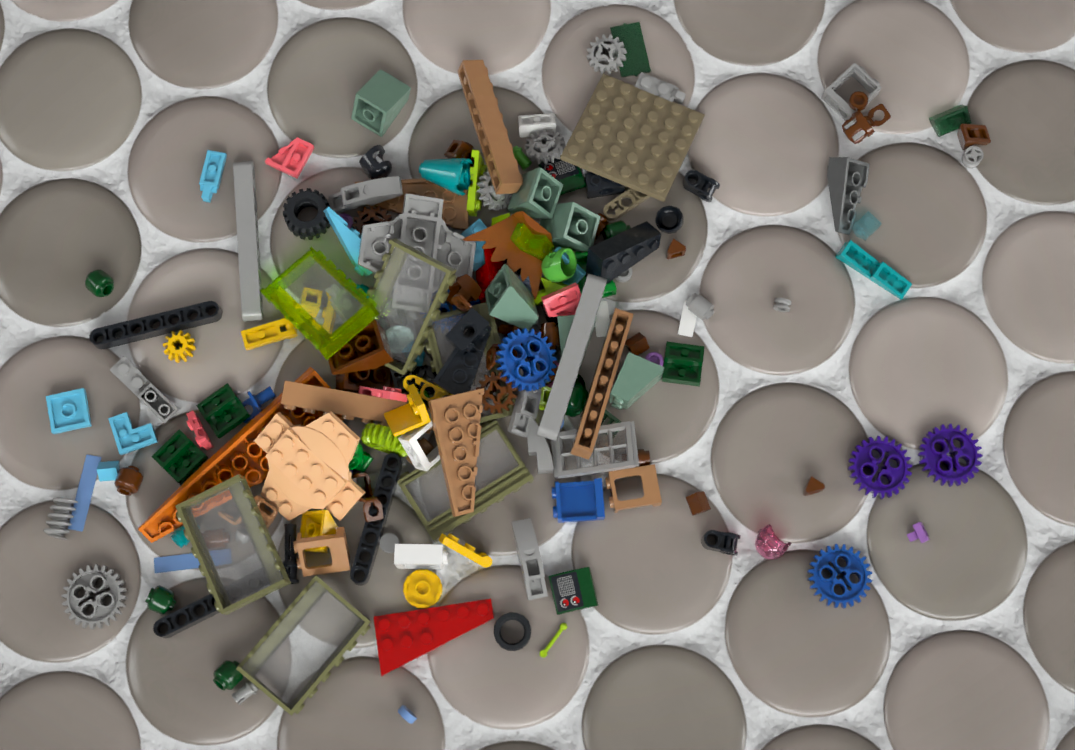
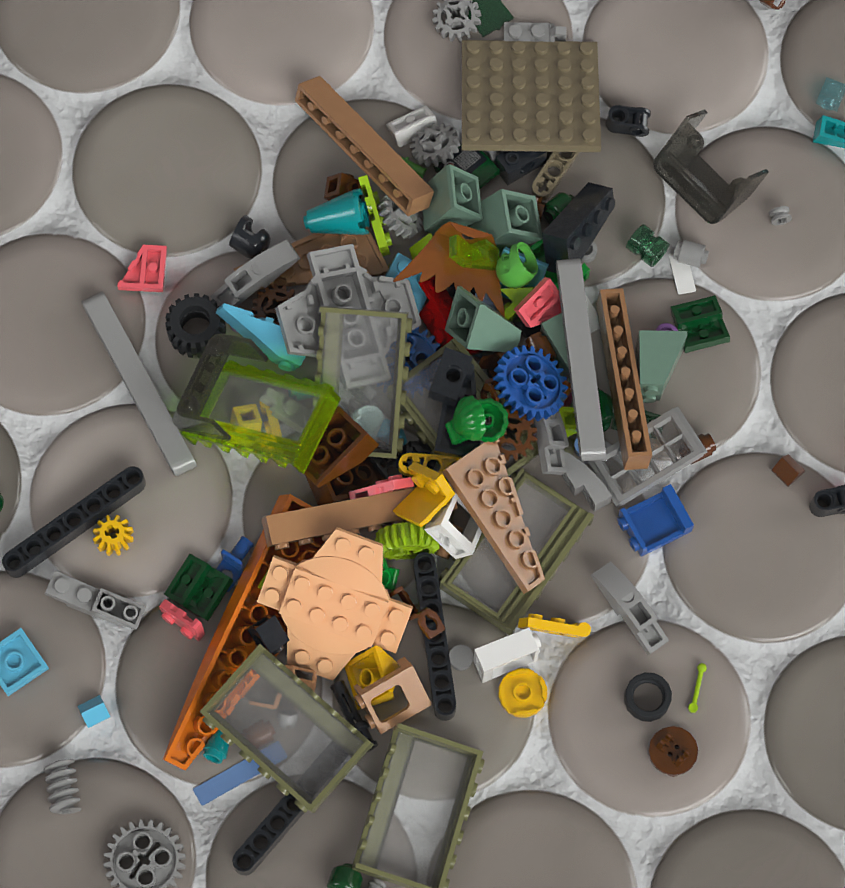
camera: 25 degrees left, 5 degrees down
(84, 492) = (75, 747): medium blue sticker -> none
(128, 480) = (124, 711): reddish brown head -> none
(131, 439) = (101, 664): medium azure plate -> none
(160, 600) = (225, 831): dark green head -> none
(179, 457) = (171, 661): dark green slope -> none
(212, 174) = (60, 325): medium azure hinge -> none
(253, 468) = (269, 634): none -> black brick
(267, 334) = (211, 479): yellow plate -> none
(290, 259) = (203, 380): none -> clear smoke windscreen
(380, 102) = (222, 169): sand green slope -> none
(407, 714) = (571, 839): medium blue tile -> none
(417, 632) = (539, 744): red wing -> none
(463, 291) = (424, 337): reddish brown piece -> none
(465, 373) = (470, 420): none -> green animal
(517, 688) = (665, 742): none -> reddish brown plate
(573, 590) = (694, 623): slope -> none
(637, 344) = (640, 320): reddish brown slope -> none
(649, 483) = (727, 469): medium nougat window -> none
(668, 285) = (647, 245): none -> clear green wheel
(669, 219) = (612, 171): black hair -> none
(675, 250) = (634, 201): reddish brown slope -> none
(731, 250) = (695, 180): none -> clear smoke windscreen
(845, 183) = (787, 53): dark grey wedge -> none

